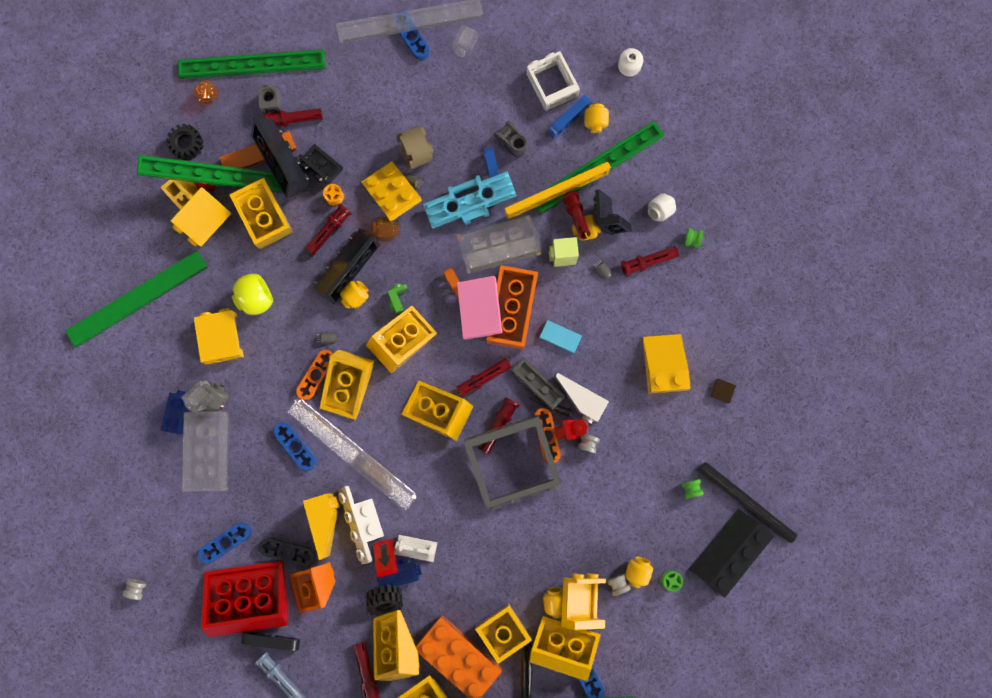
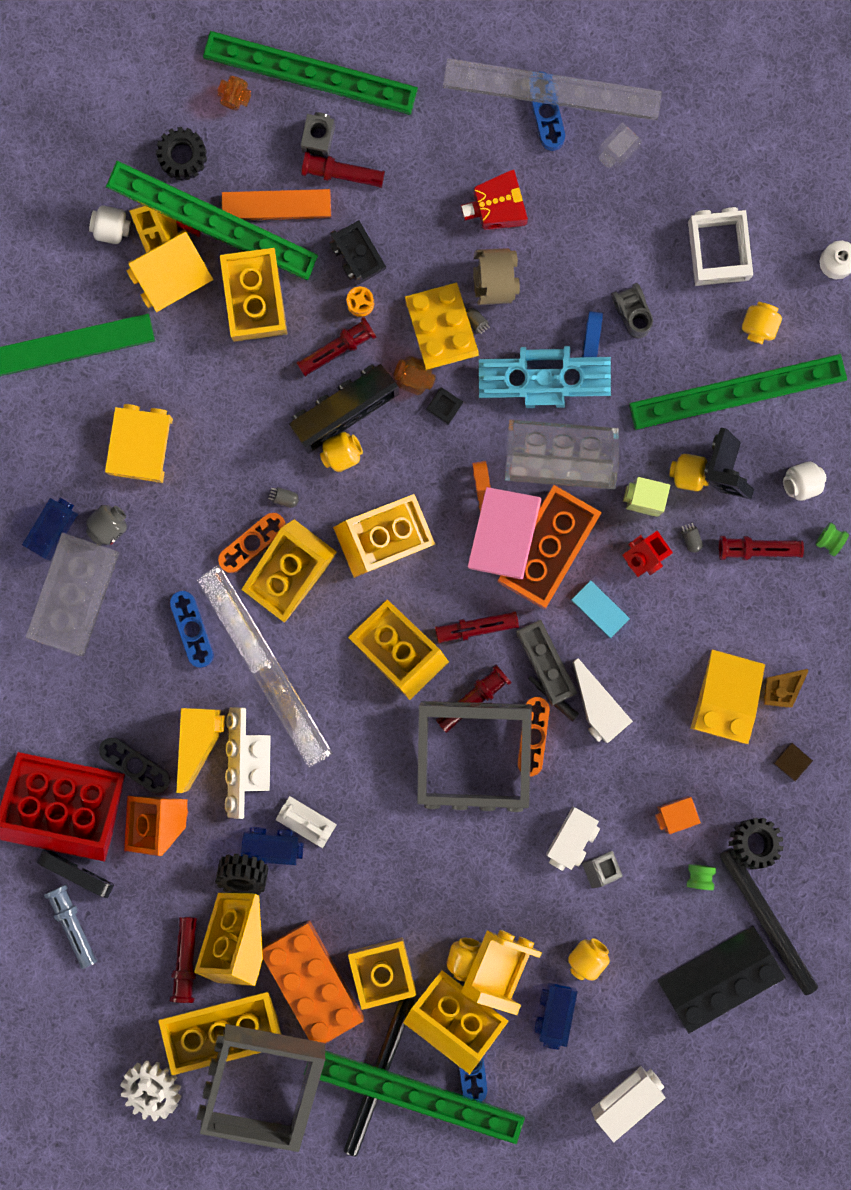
camera: 20 degrees right, 5 degrees up
(151, 202) = (109, 224): none -> white head
(199, 396) = (89, 519): clear brick -> none
(214, 556) = (39, 736): blue beam -> none
(252, 294) = (203, 404): neon yellow wheel -> none
(279, 156) = (304, 225): black slope -> none
(385, 558) = (261, 820): red tile -> none
(395, 303) = (392, 483): bright green bracket -> none
(400, 102) = (497, 203): none -> red torso
(411, 242) = (444, 406): none -> black tile
(557, 190) = (670, 407): yellow tile -> none
(571, 114) = (730, 304): blue beam -> none
(571, 429) = (569, 741): red hips -> none
(575, 209) = (683, 442): dark red pin -> none
(577, 289) = (647, 554): none -> red brick
(588, 443) = (584, 766): light grey wheel -> none
(597, 495) = (571, 839): none -> white brick
(618, 584) = (556, 966): light grey wheel -> none
(625, 508) = (602, 870): none -> dark grey slope
(631, 617) = (557, 1015): none -> clear blue brick
(661, 453) = (677, 815): none -> orange brick
(675, 582) = (631, 990): bright green wheel -> none
(699, 345) = (784, 688): none -> pearl gold piece
(702, 661) = (628, 1103): none -> white window
(727, 446) = (771, 843): none -> black tyre

